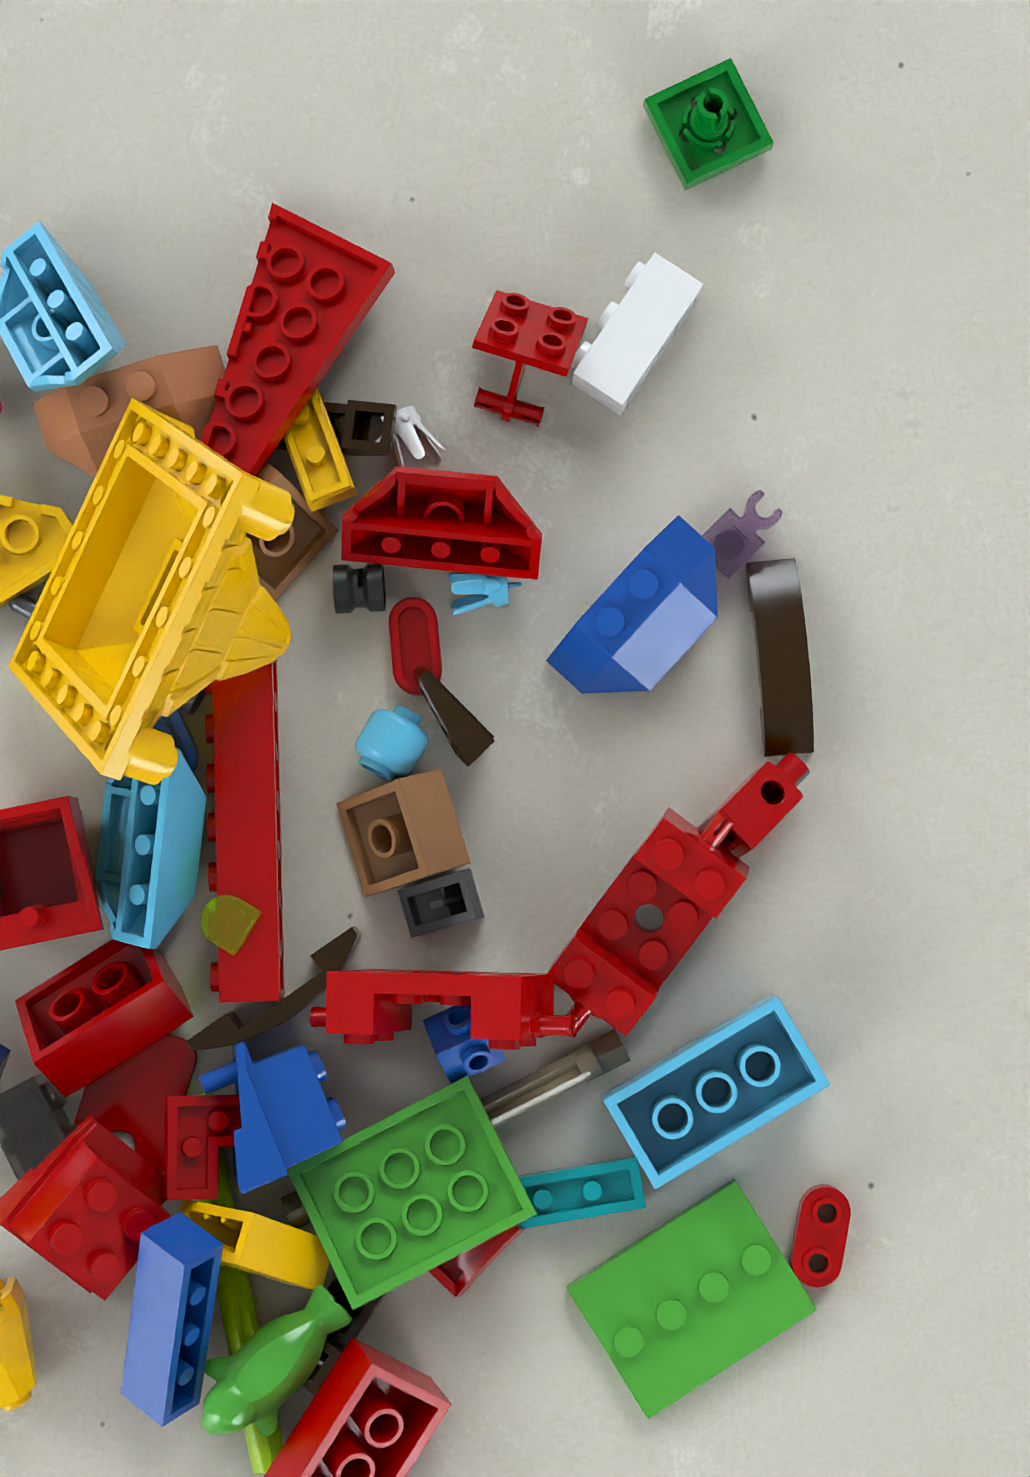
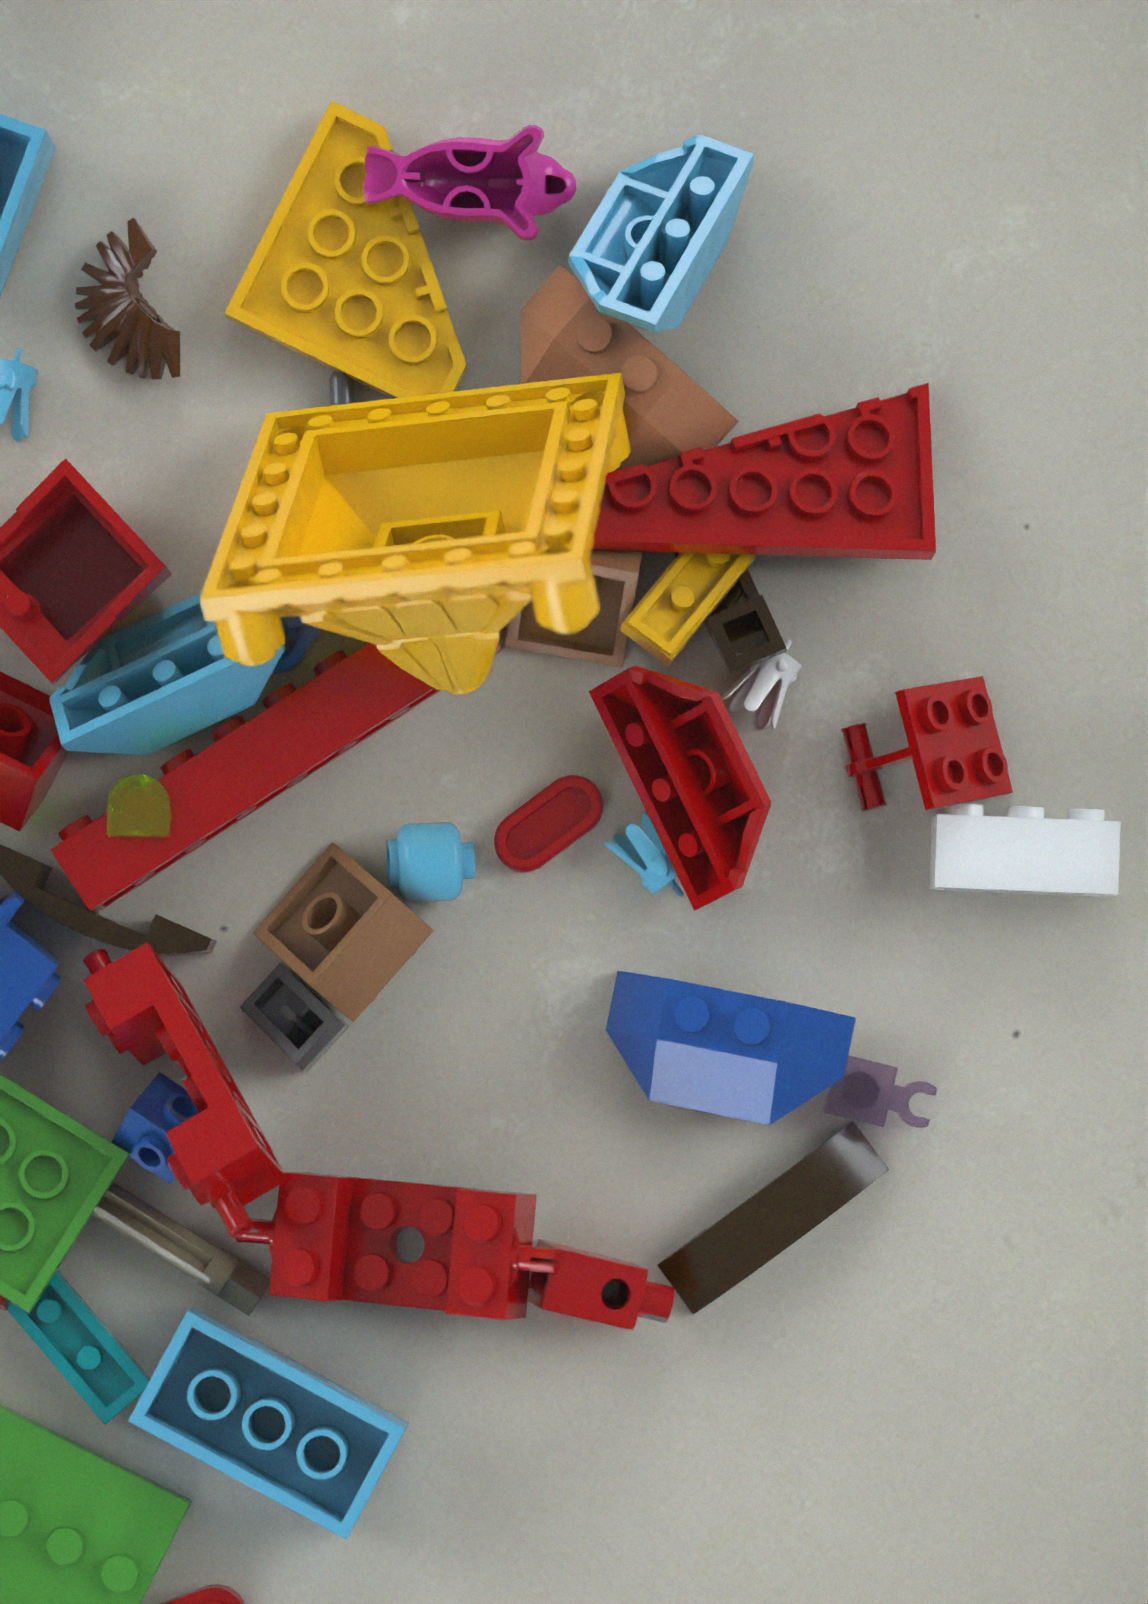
camera: 60 degrees right, 0 degrees up
(359, 588) = (562, 717): pearl dark grey wheel -> none
(459, 725) = (490, 926): dark brown slope -> none

